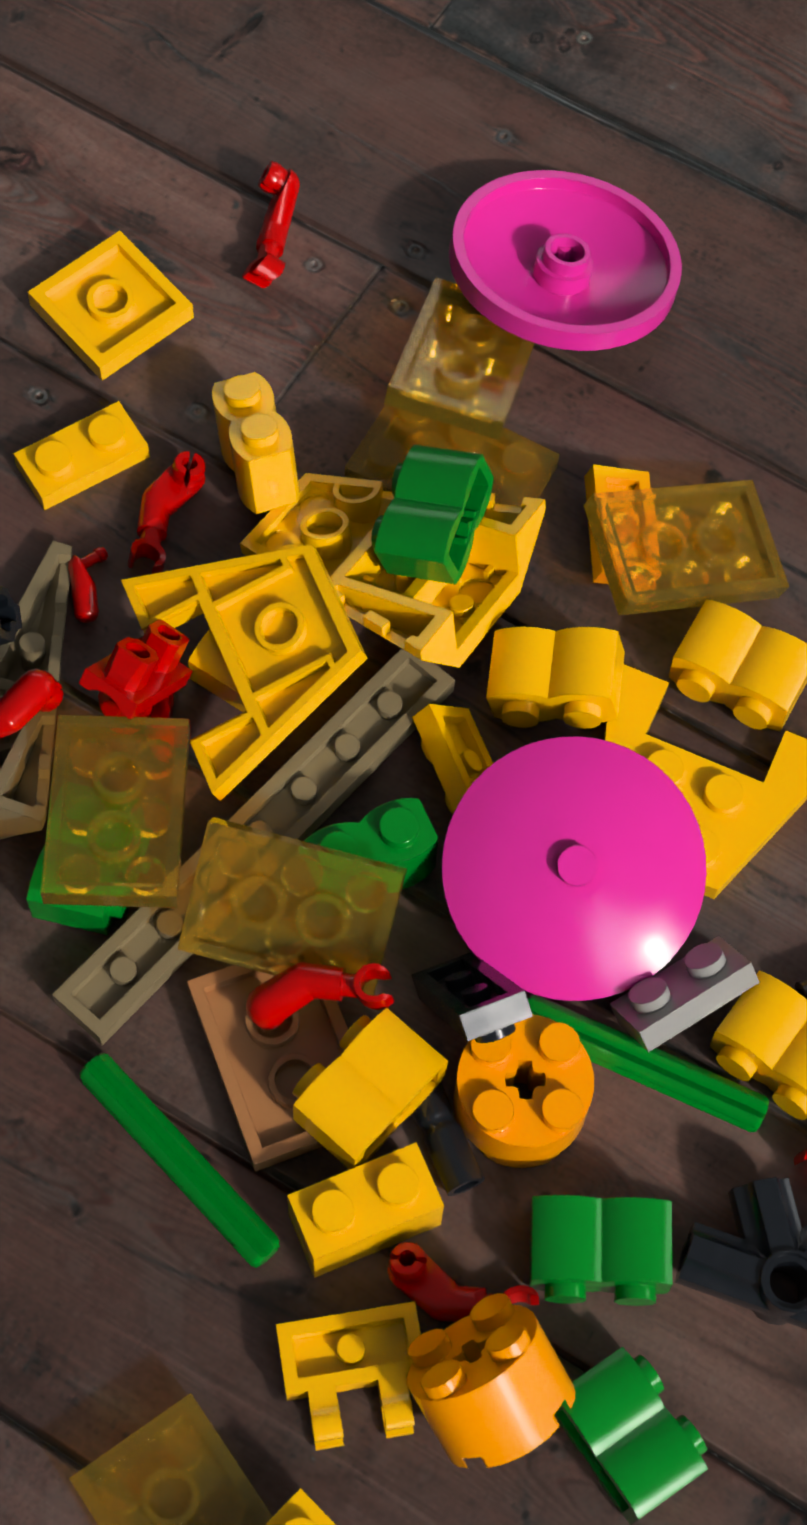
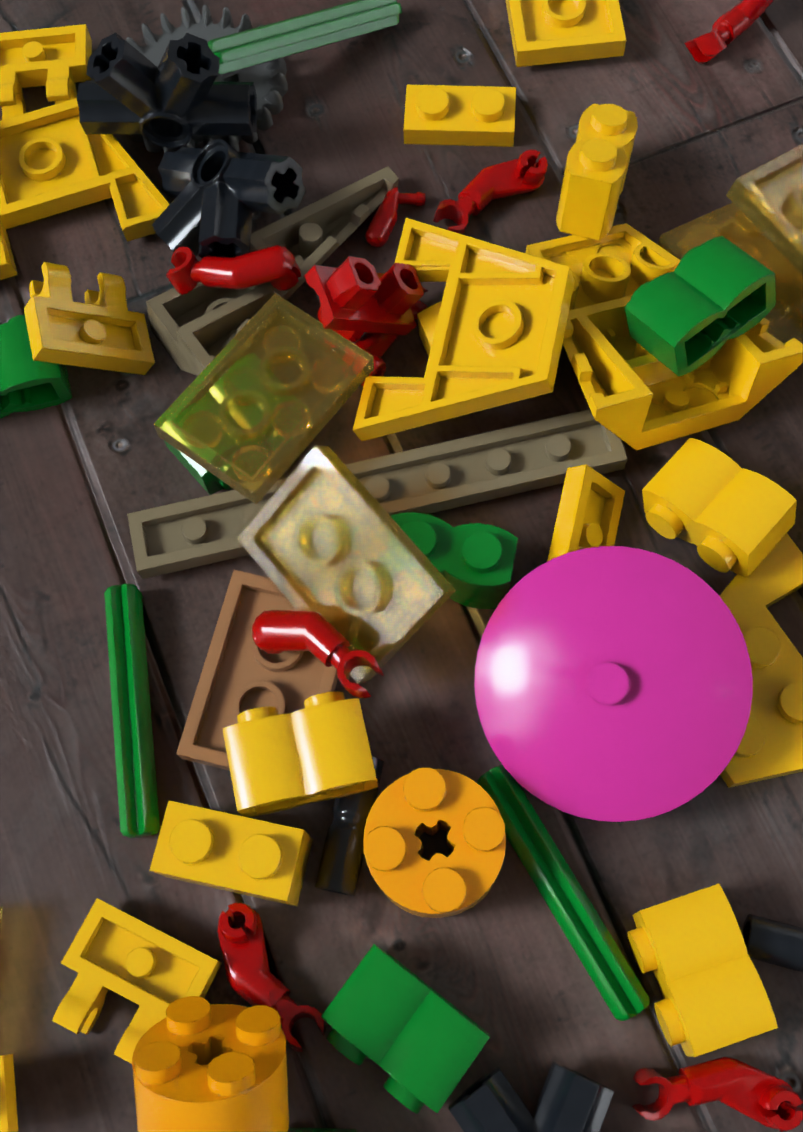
camera: 45 degrees right, 5 degrees up
(473, 998) = (433, 741): black plate -> none
(684, 993) = (638, 857): plate -> none

